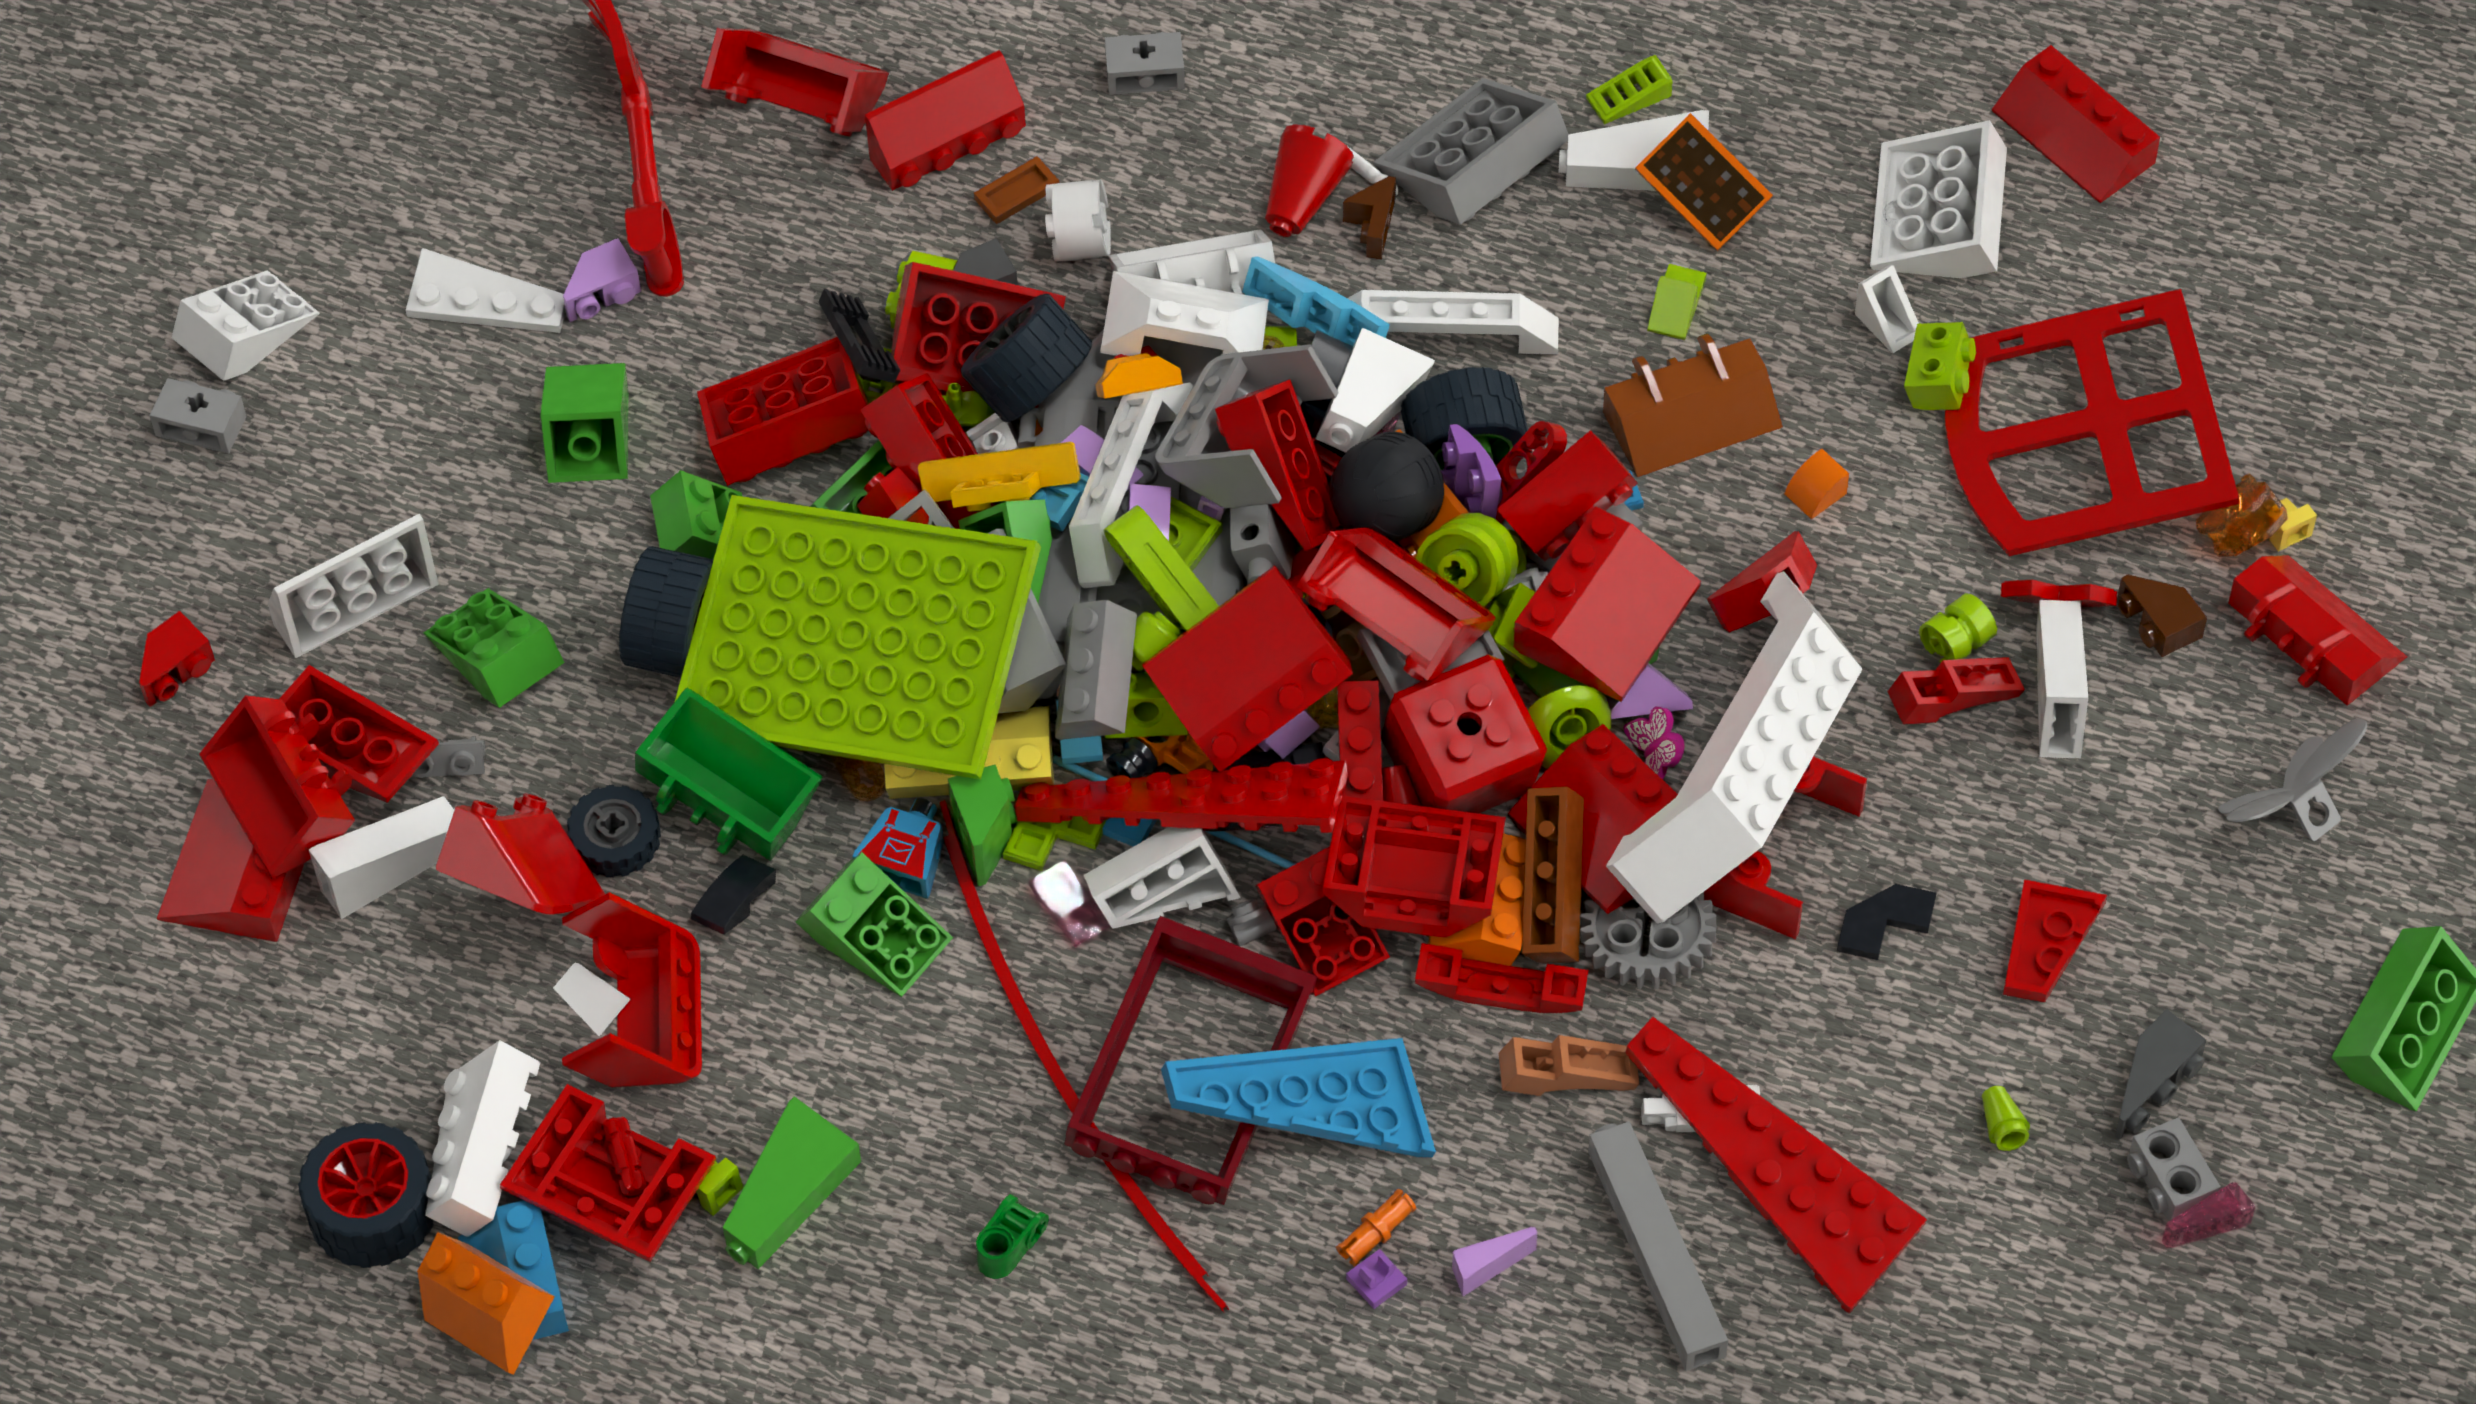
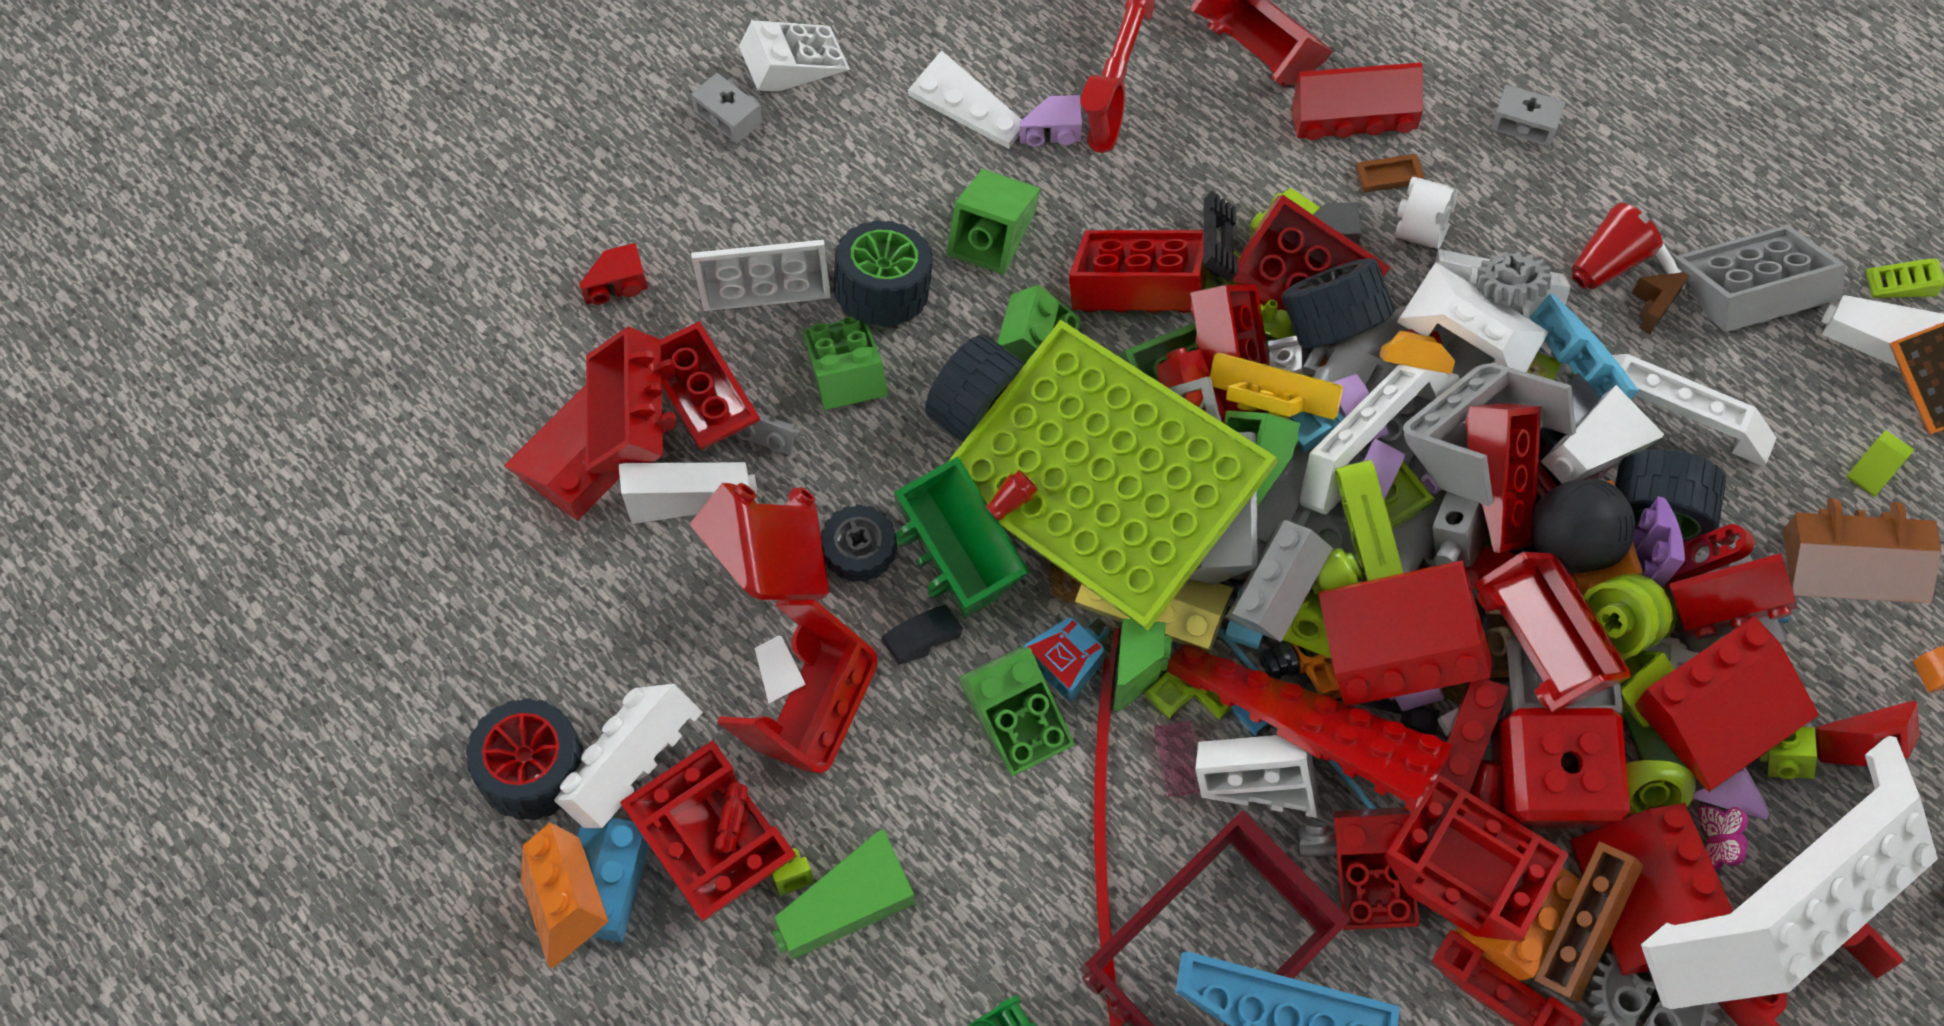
camera: 25 degrees right, 5 degrees up
(491, 529) = (882, 273): none -> black wheel
(767, 702) = (1013, 494): none -> red cone
(1206, 255) = (1514, 278): none -> light grey gear
(1696, 630) = (1793, 756): none -> lime brick

